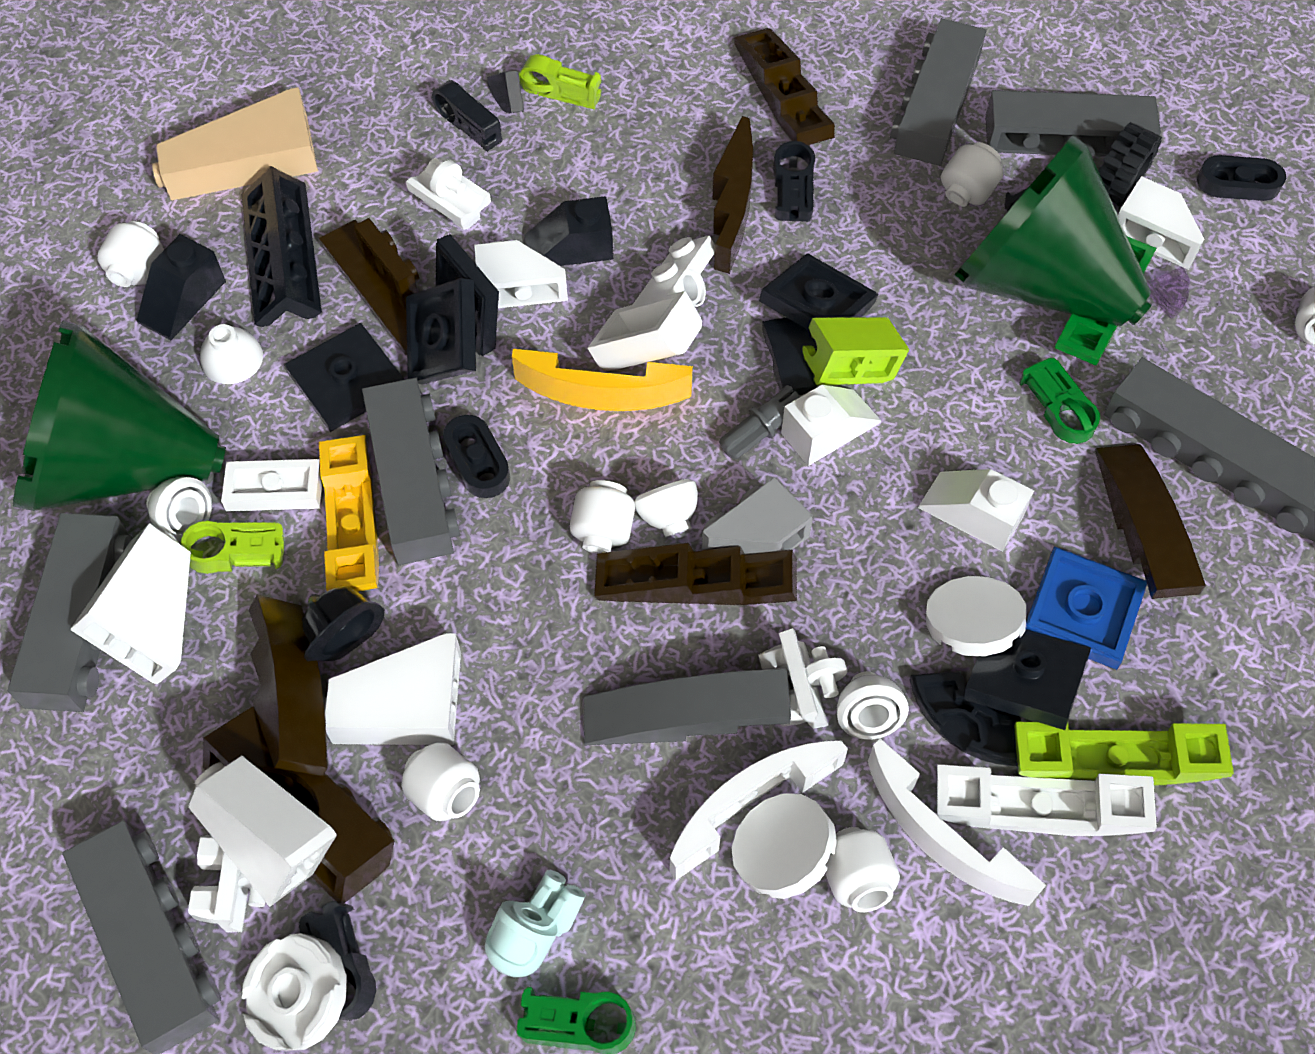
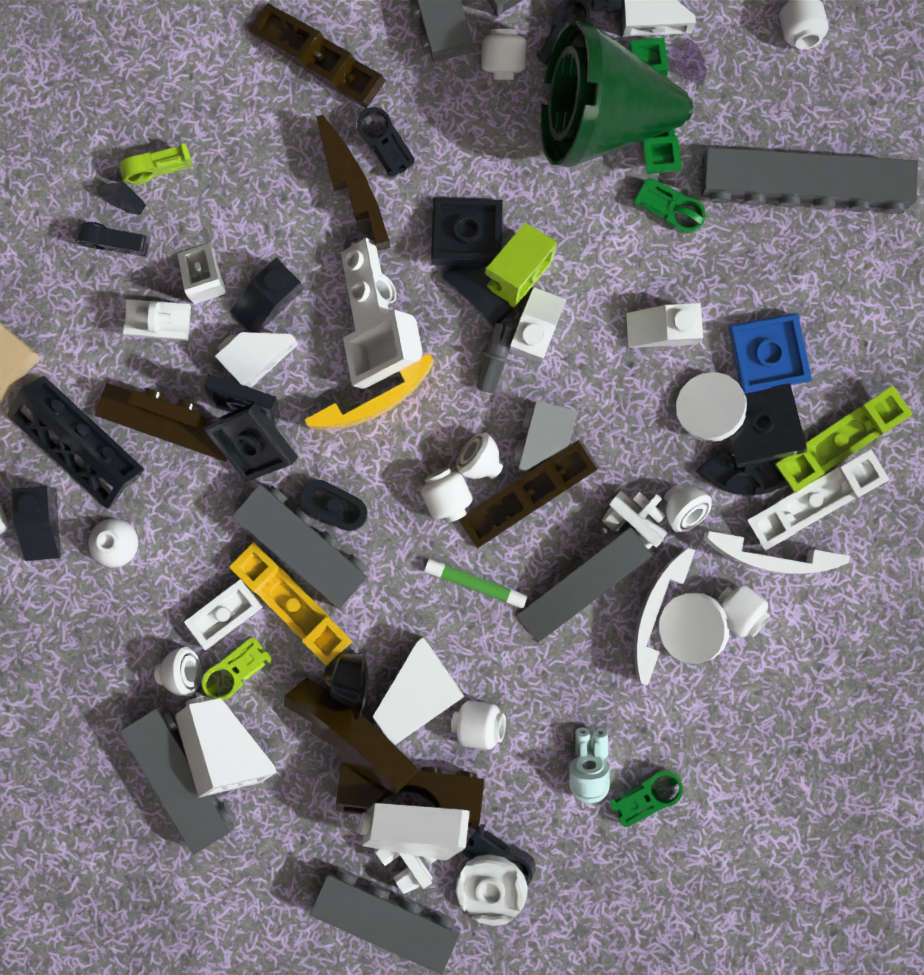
camera: 35 degrees left, 25 degrees up
(106, 430) = (99, 665): dark green cone -> none
(337, 372) = (201, 505): black plate -> none
(521, 189) = (201, 274): none -> white slope
(564, 633) = (475, 583): none -> bright green bar
(1149, 522) = (774, 265): dark brown slope -> none

